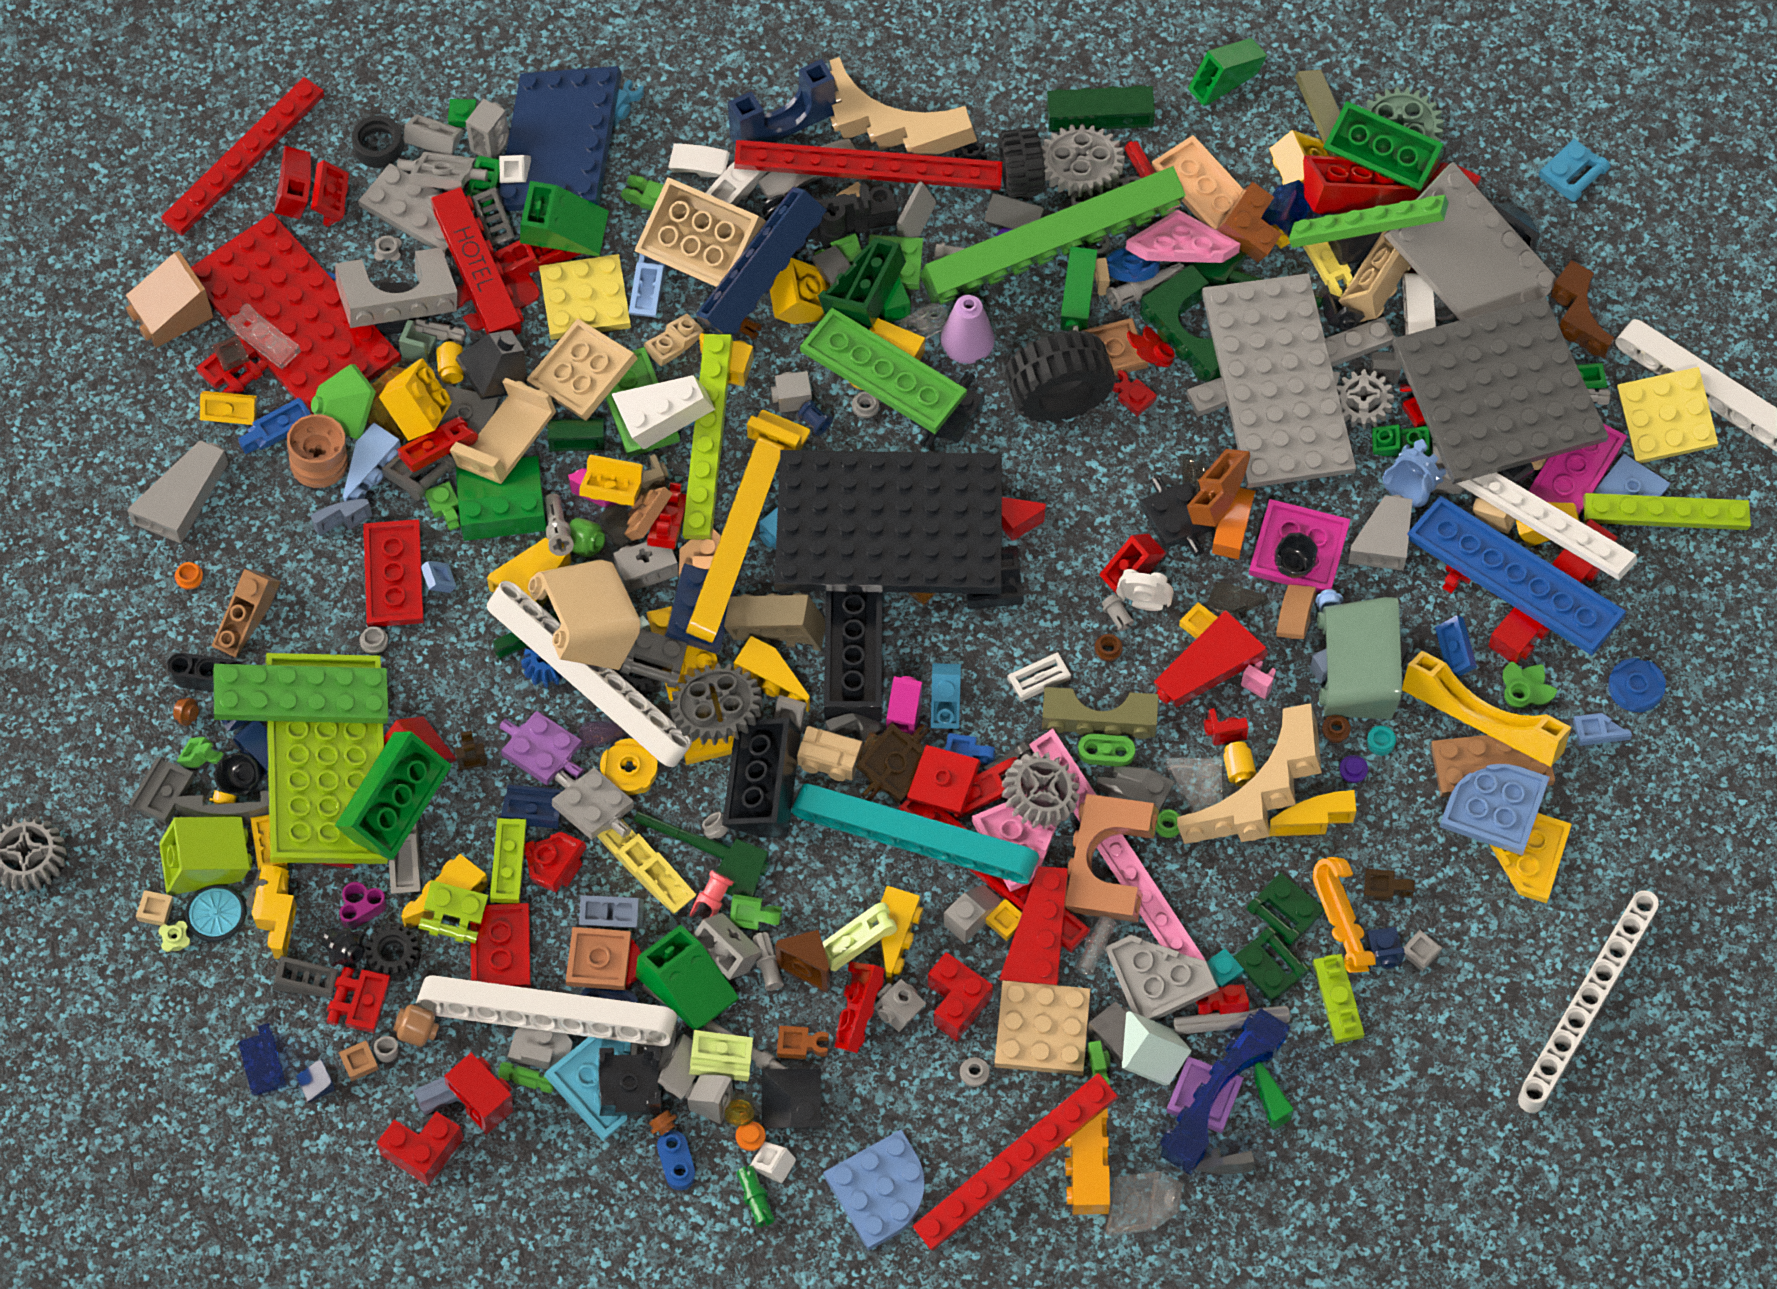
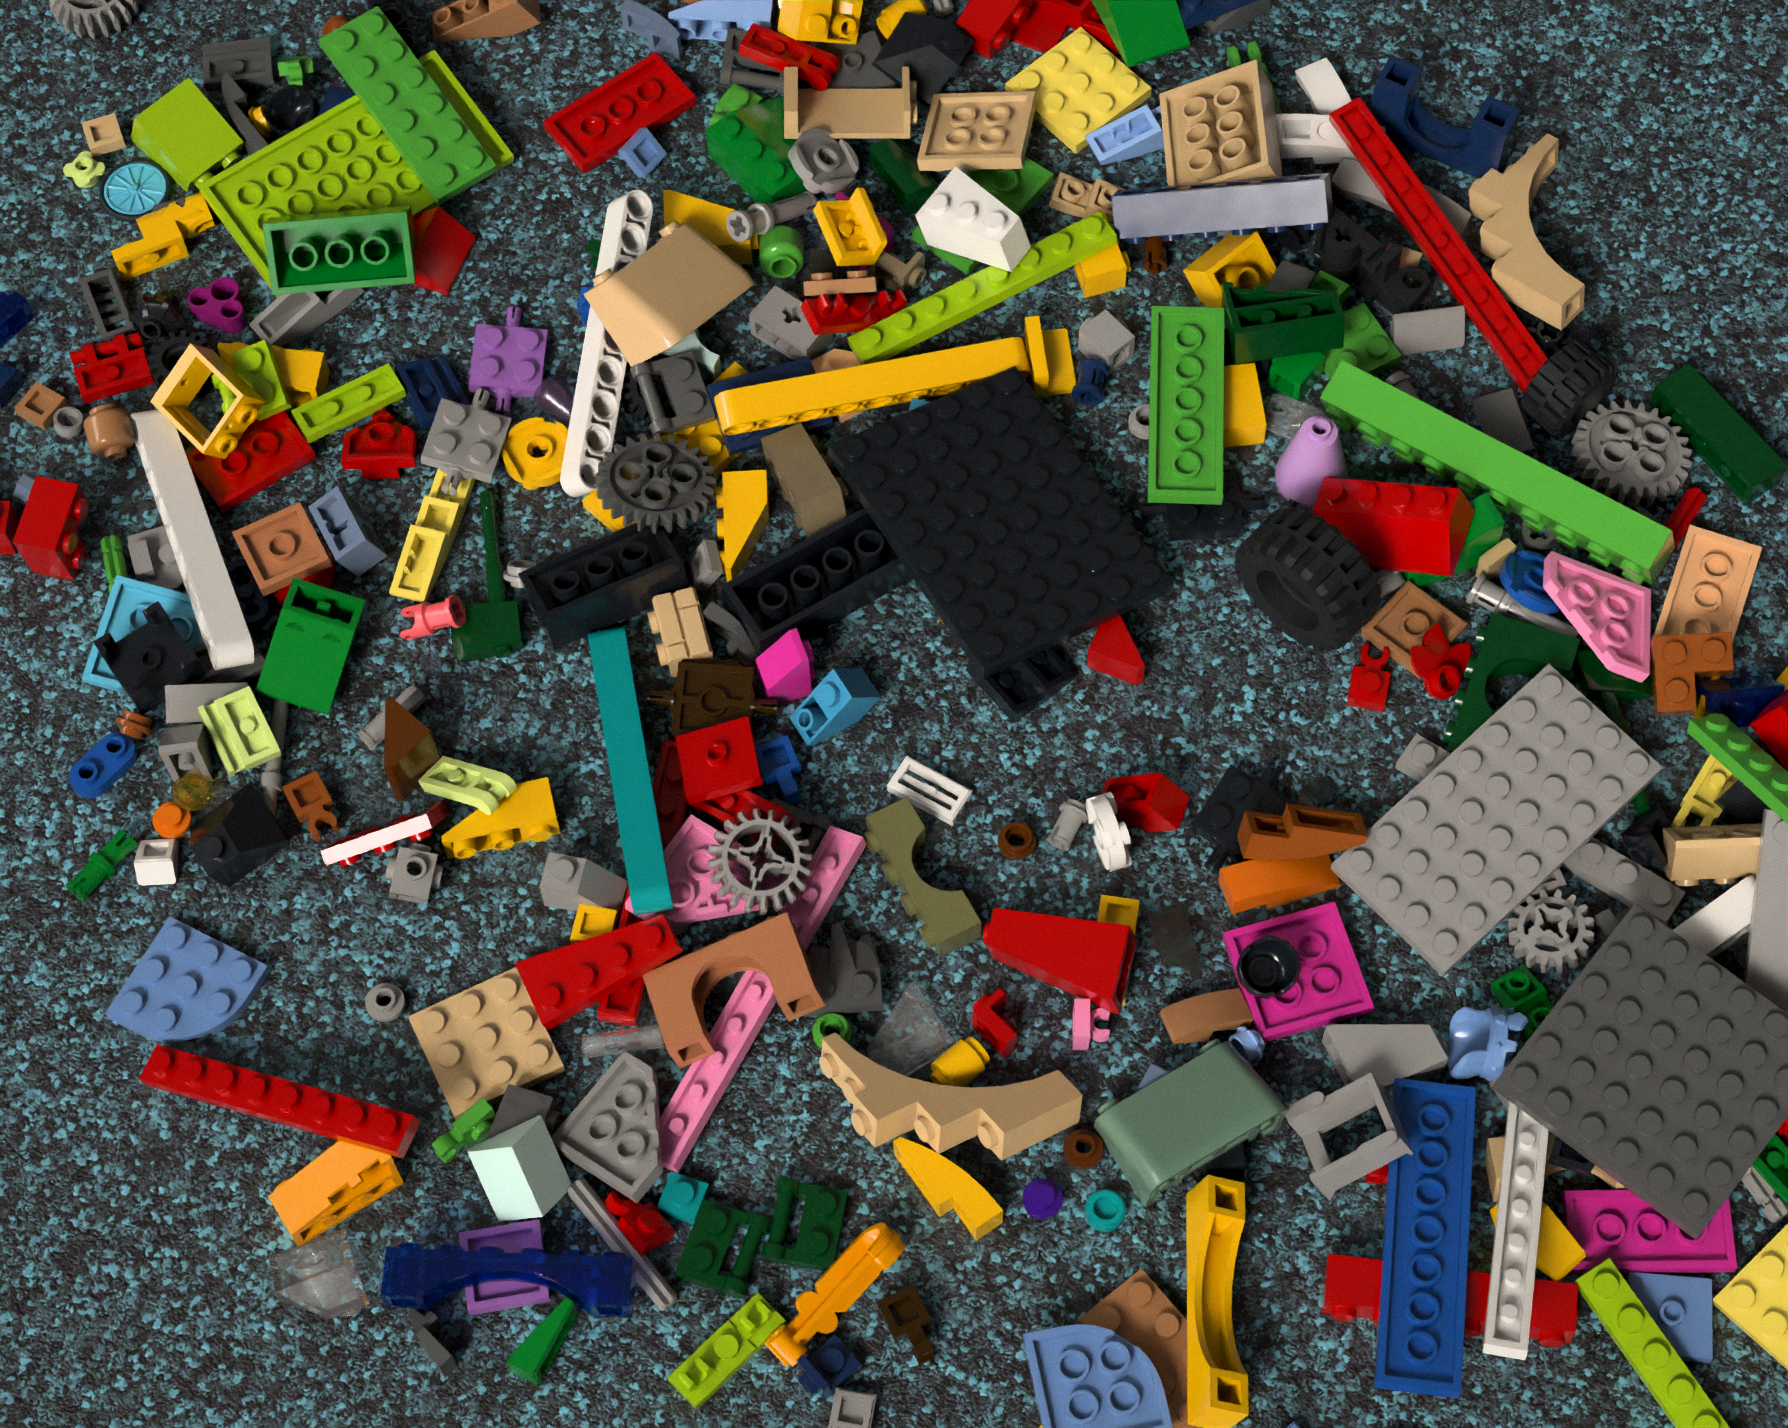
camera: 60 degrees right, 0 degrees up
(373, 640) = (531, 141): light grey plate -> none
(425, 947) = (174, 398): none -> yellow window
(470, 754) = (452, 297): dark brown plate -> none
(540, 470) = (808, 156): none -> light grey plate
(727, 945) = (376, 662): light grey brick -> none
(748, 912) = (436, 666): bright green plate -> none
(963, 992) = (465, 938): red brick -> none
(1056, 304) = (1399, 523): none -> red slope
(1106, 750) = (882, 914): bright green plate -> none
(1402, 582) = (1321, 1113): none -> light grey piece
(1456, 646) = (1288, 1225): blue plate -> none
(1528, 684) = (1304, 1340): bright green plate -> none

